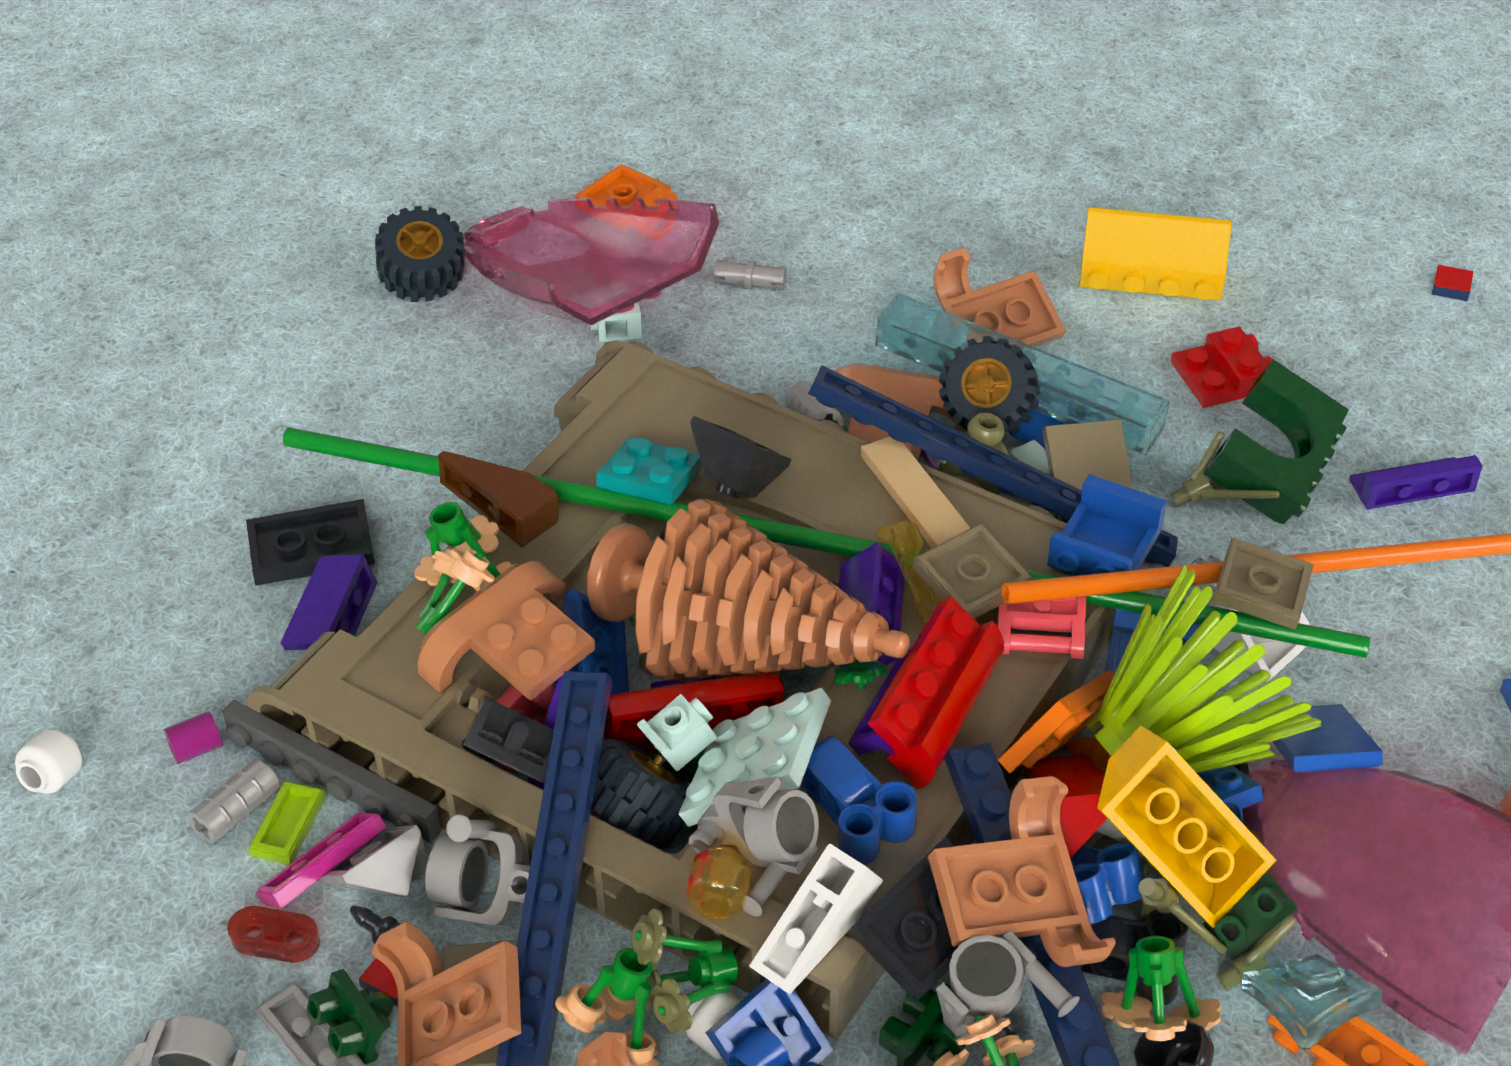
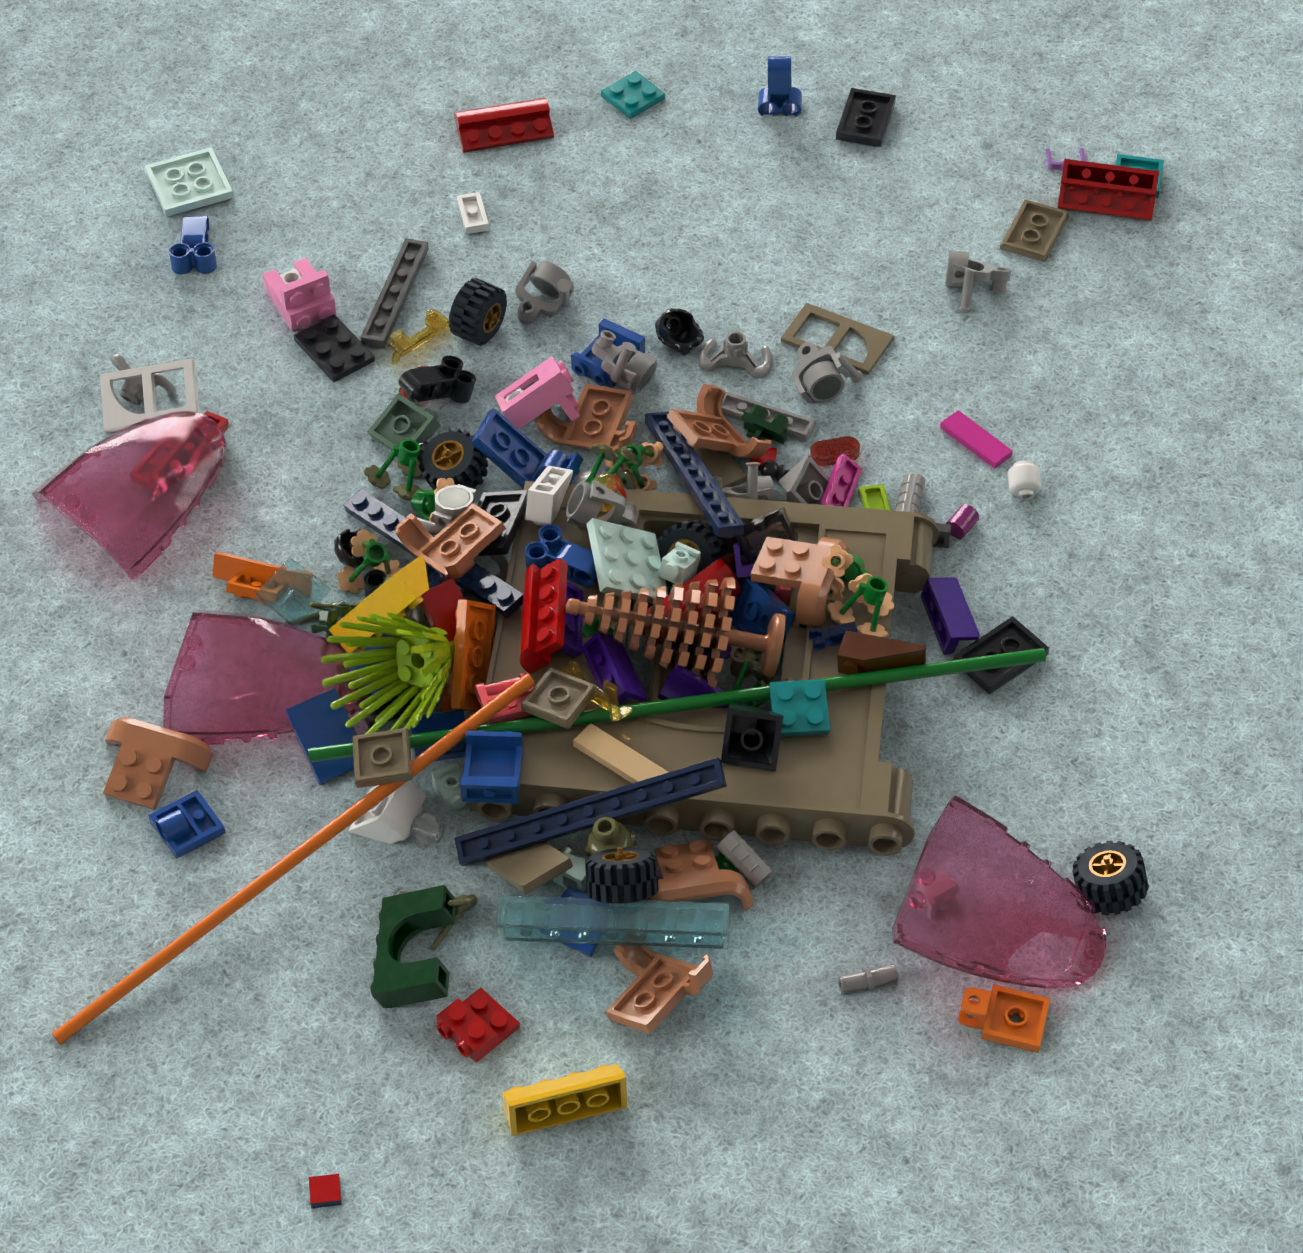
camera: 155 degrees right, 5 degrees up
(44, 875) = (976, 439): none -> dark pink tile
(523, 549) = (830, 636): none -> clear blue bar
(1417, 481) = (312, 972): dark purple panel -> none

